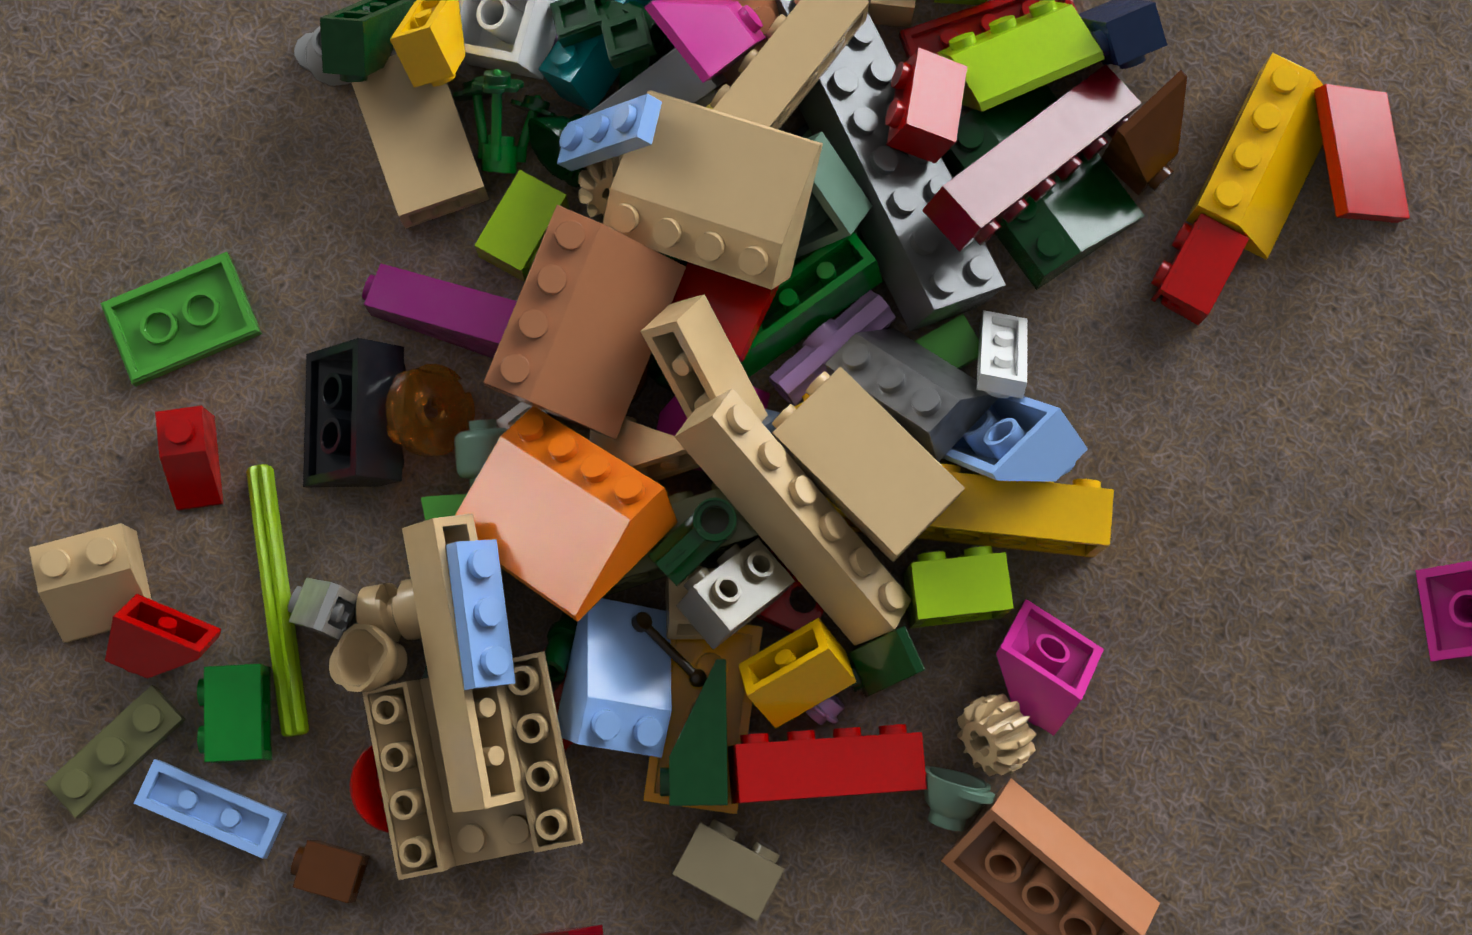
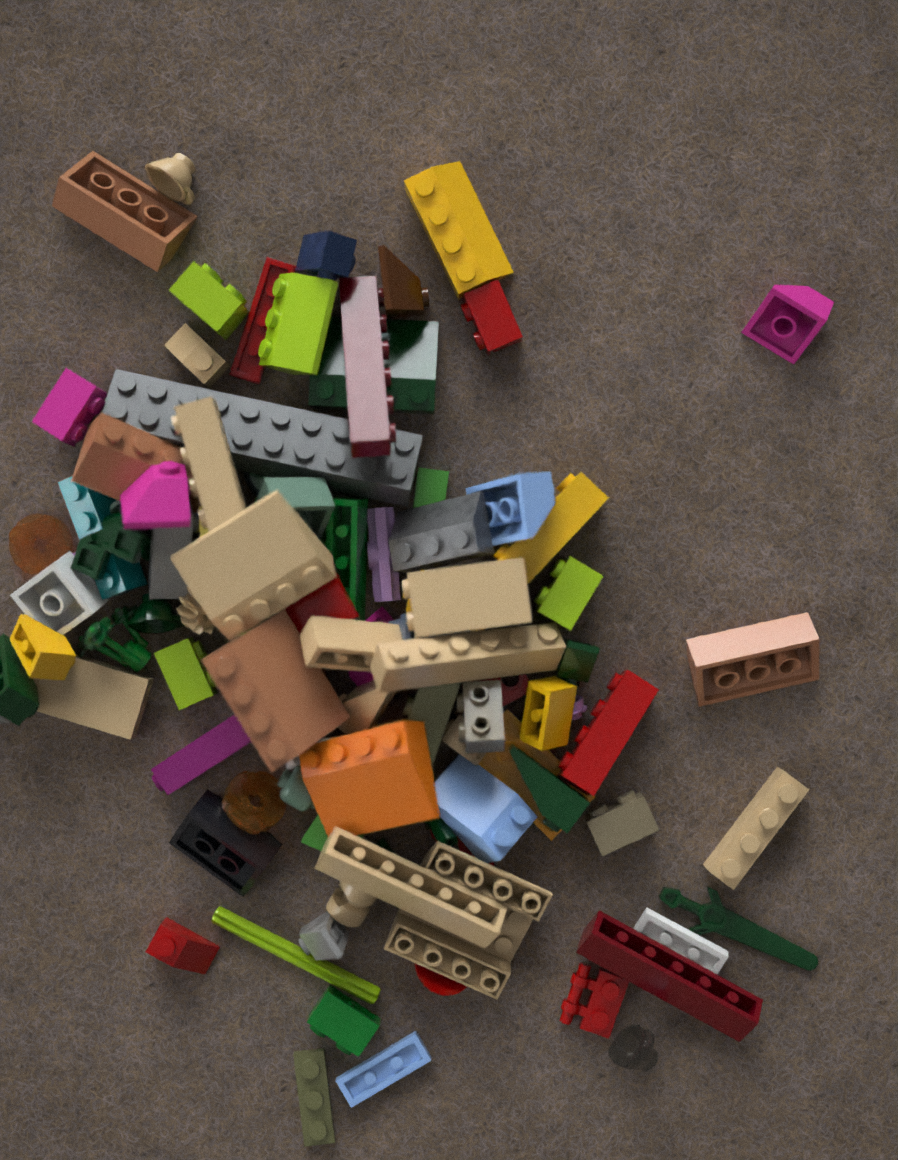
camera: 45 degrees left, 10 degrees up
(89, 579) = (214, 1047): tan slope -> none
(156, 638) = (272, 1035): red slope -> none
(180, 319) = (97, 897): bright green tile -> none
(329, 870) = (463, 1030): reddish brown brick -> none
(366, 659) = (369, 935): tan piece -> none
(480, 614) = (394, 862): light blue plate -> none
(609, 132) = (177, 596): light blue plate -> none
(643, 623) = (458, 773): dark brown hinge -> none
(691, 544) = (441, 721): dark green piece -> none
(925, 105) = (290, 404): brick -> none
(954, 797) = (672, 675): sand green piece -> none
(996, 734) = (658, 630): tan gear -> none
(1002, 355) = (460, 468): white plate -> none
(1046, 666) = (641, 574): dark pink slope -> none
(1361, 154) = (496, 174): tile -> none

